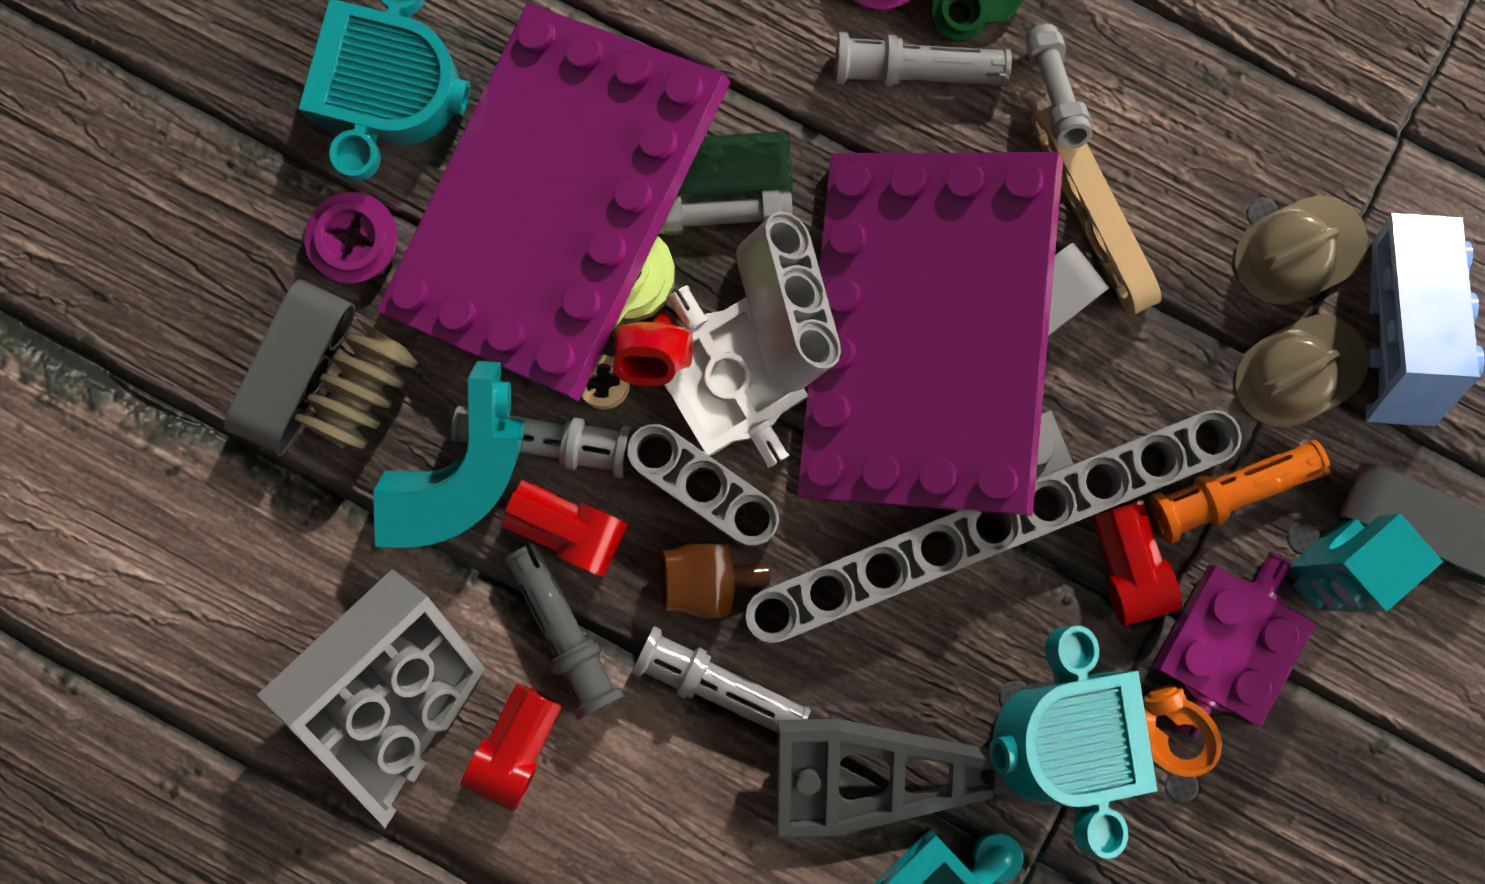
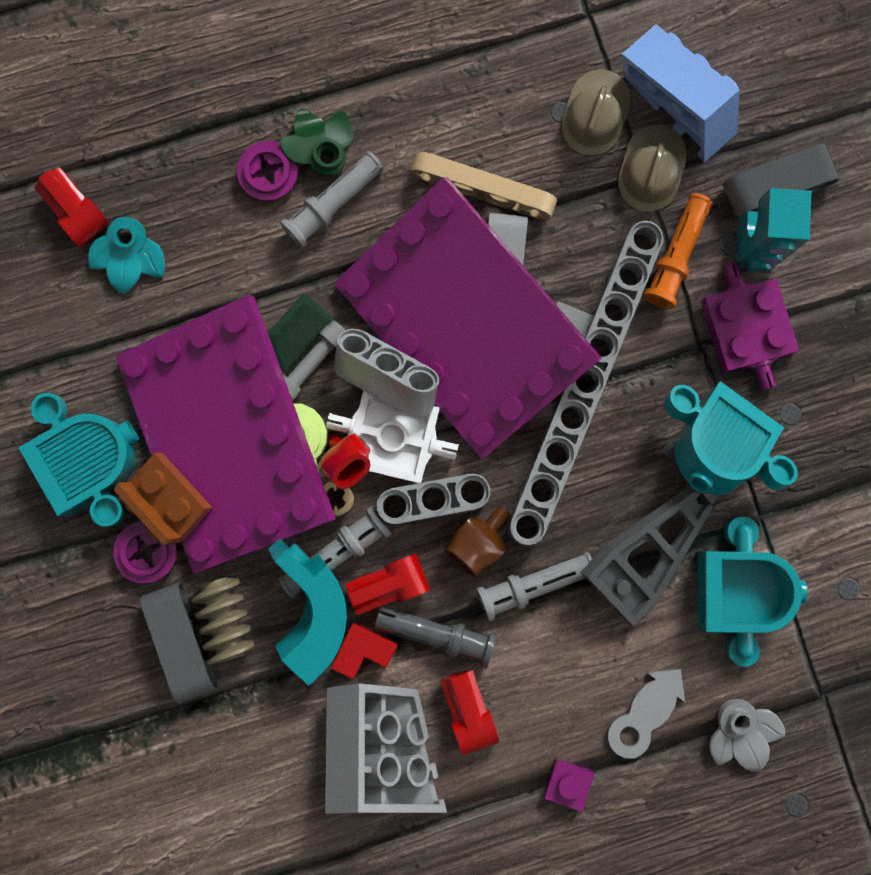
camera: 50 degrees left, 0 degrees up
(422, 203) = (163, 500): none -> dark orange bracket
(474, 559) = (363, 643): none -> red piece
(1068, 118) = (431, 156): light grey bar -> none
(1139, 579) = (677, 338): red piece -> none
(1172, 702) = (750, 380): orange piece -> none

